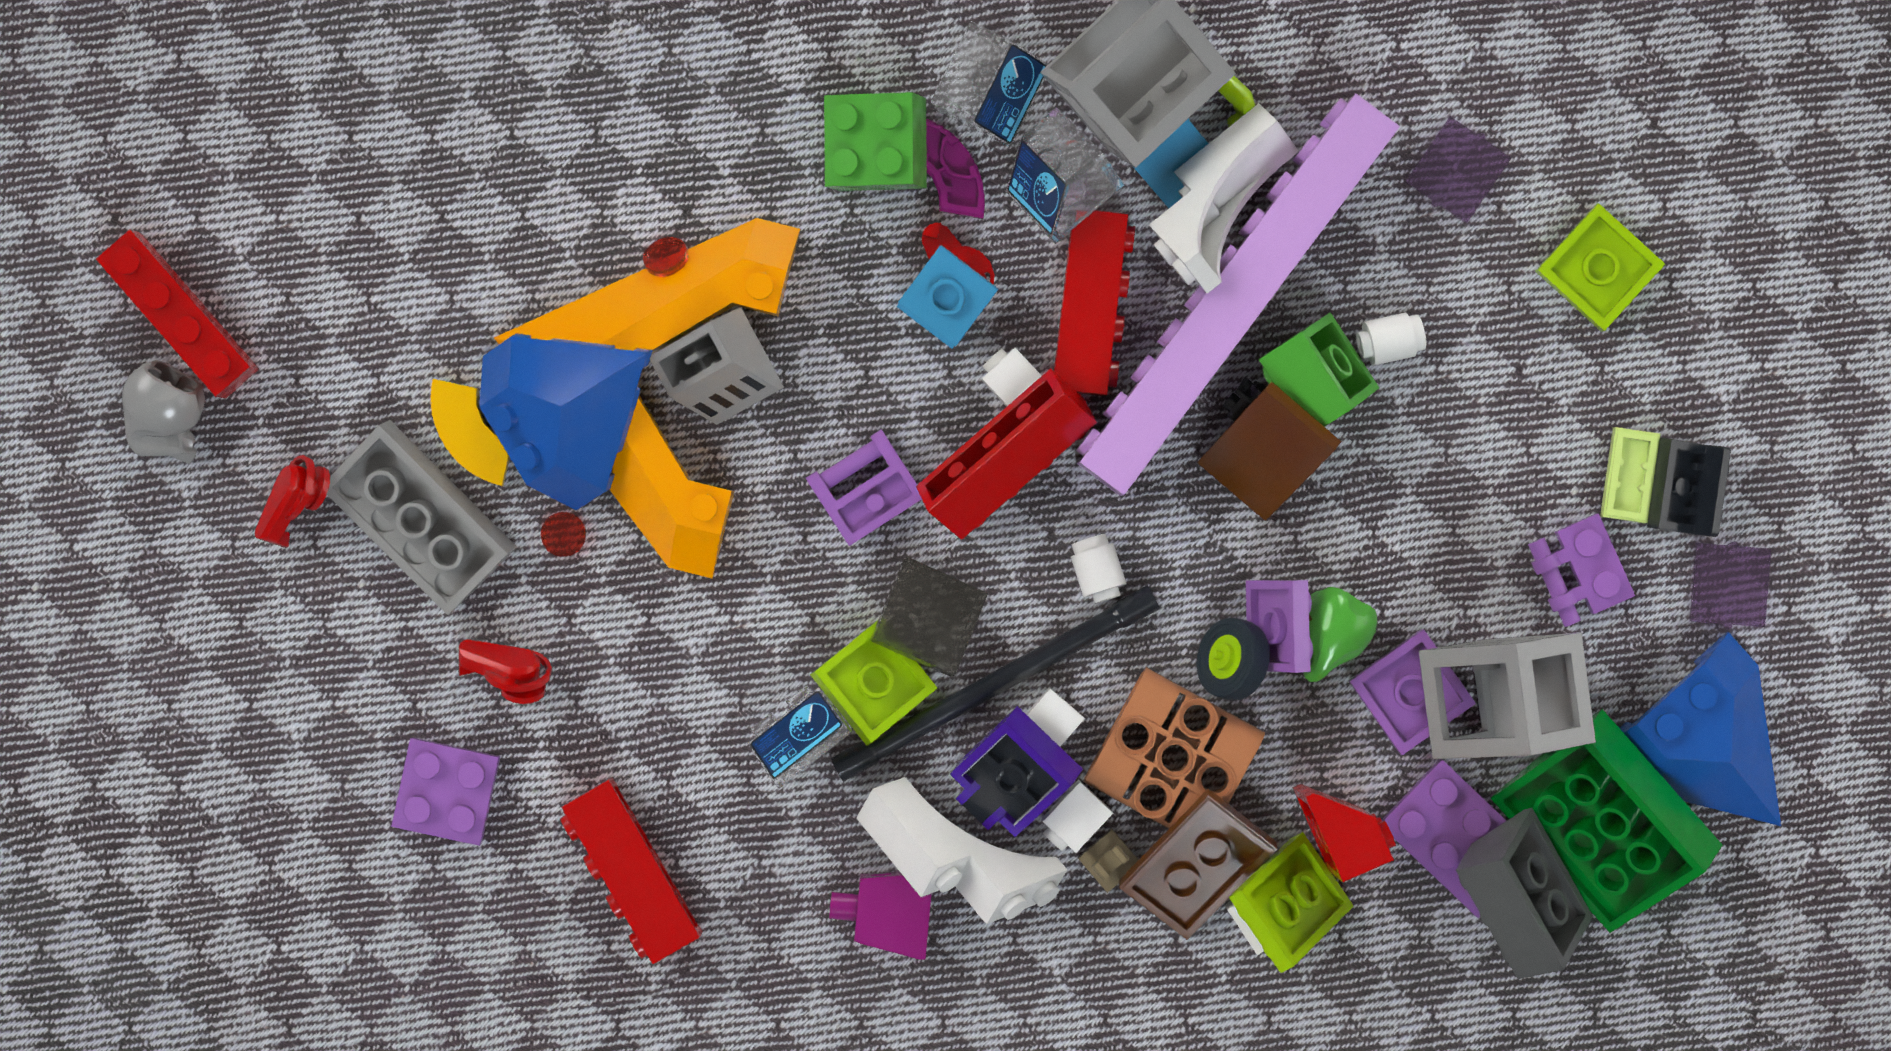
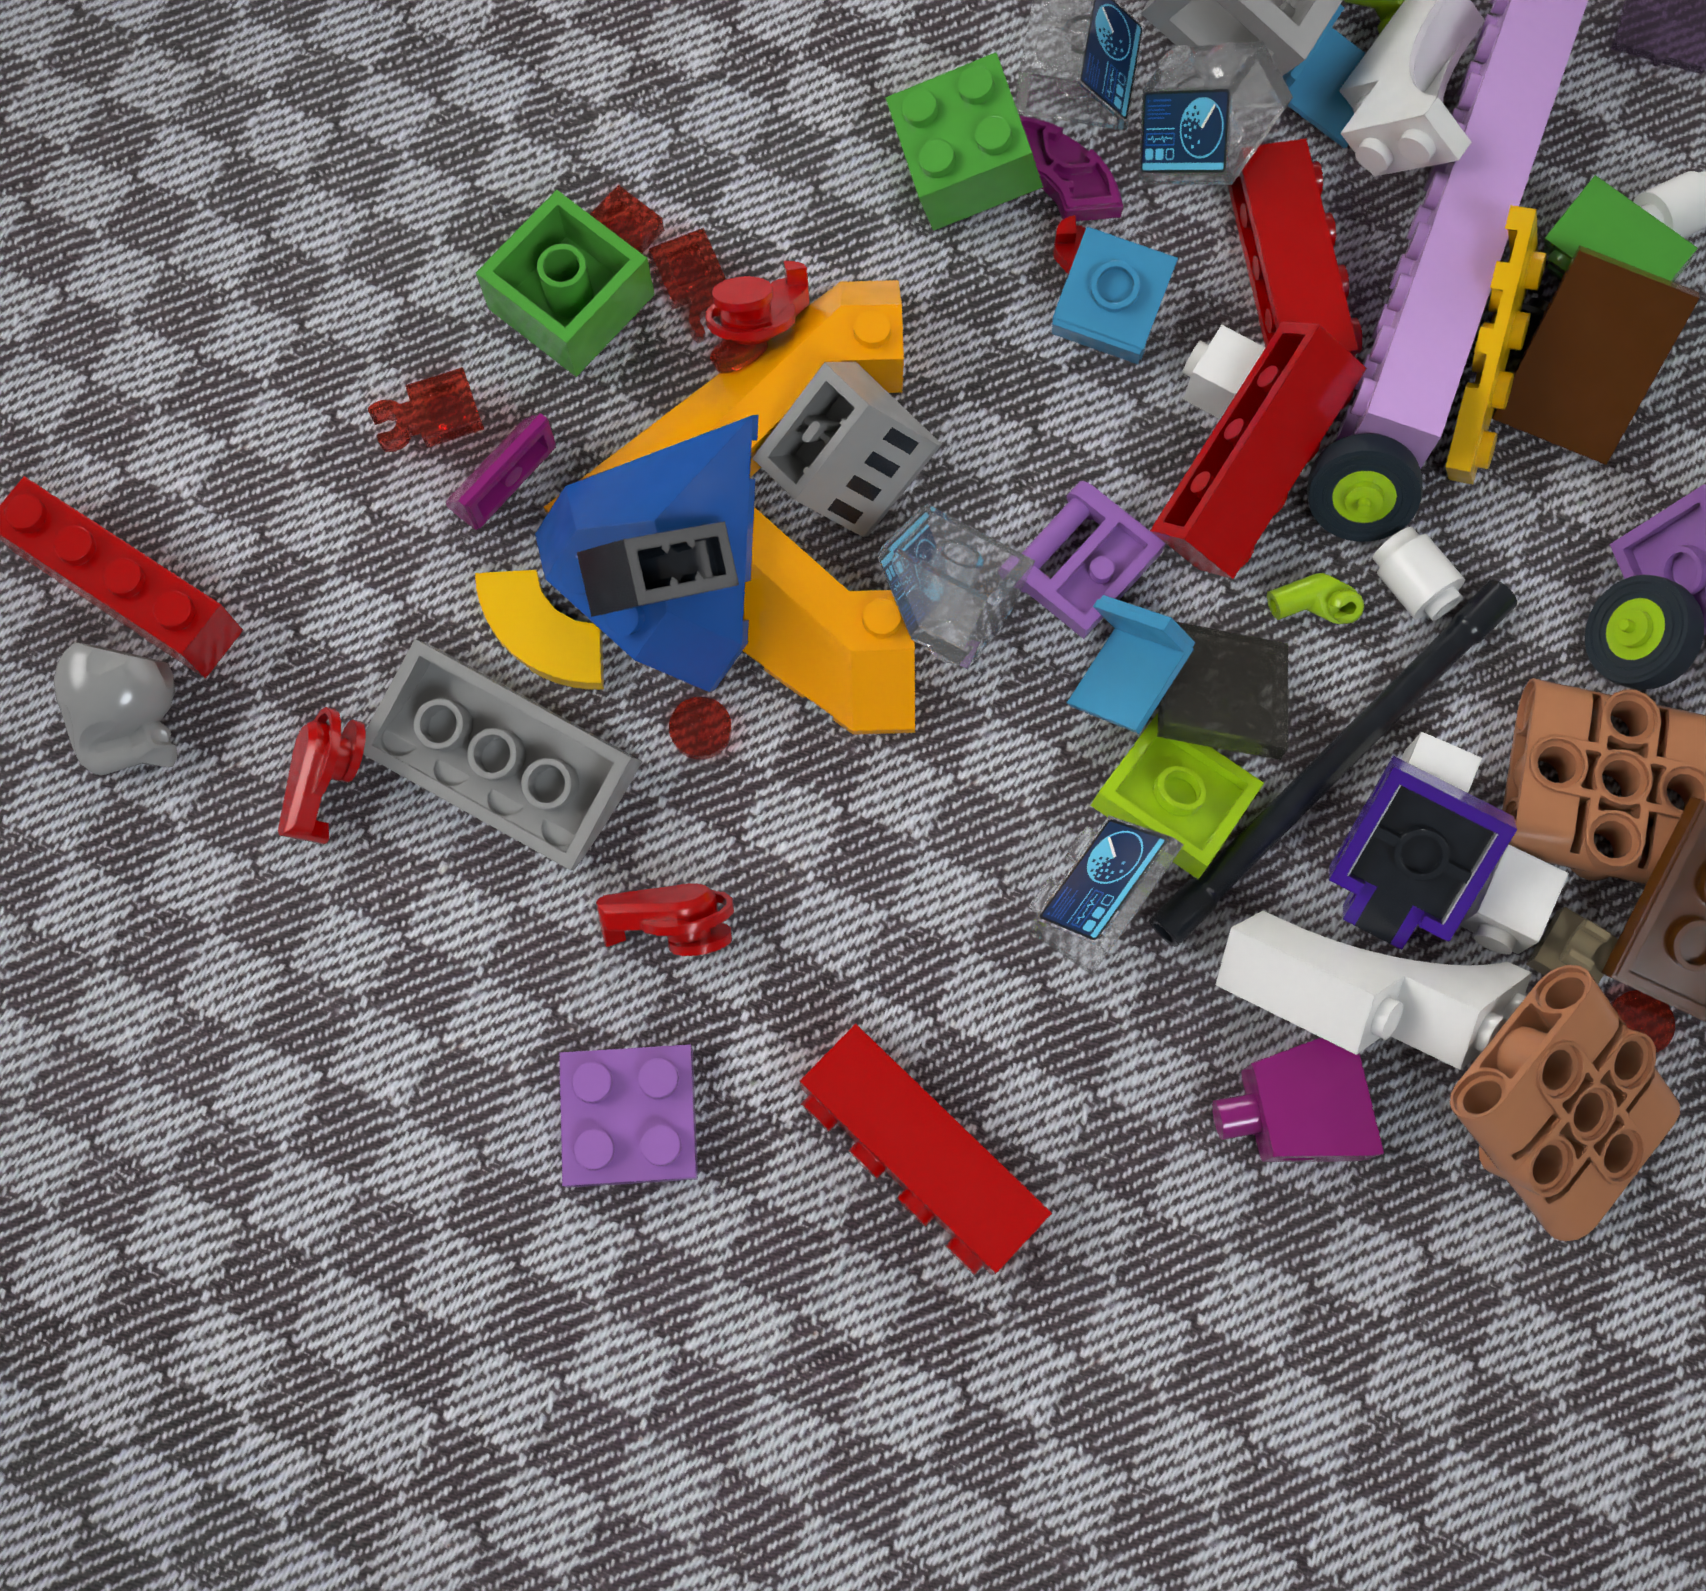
camera: 15 degrees left, 15 degrees down
(436, 243) = (437, 409): none -> clear red plate
(468, 300) = (503, 471): none -> magenta slope
(550, 175) = (566, 283): none -> bright green brick
(552, 446) = (657, 568): none -> black arch
(605, 131) = (629, 219): none -> clear red plate
(645, 186) = (688, 275): none -> clear red plate
(685, 239) = (755, 308): none -> red piece
(760, 492) = (952, 584): none -> clear slope
(869, 584) = (1132, 665): none -> dark azure piece
(1025, 561) = (1318, 595): none -> lime arm
(1050, 963) = (1566, 1103): none -> nougat connector
(1075, 499) = (1365, 487): none -> black wheel
(1135, 920) = (1646, 1016): none -> clear red piece
(1215, 398) = (1472, 442): none -> yellow wing

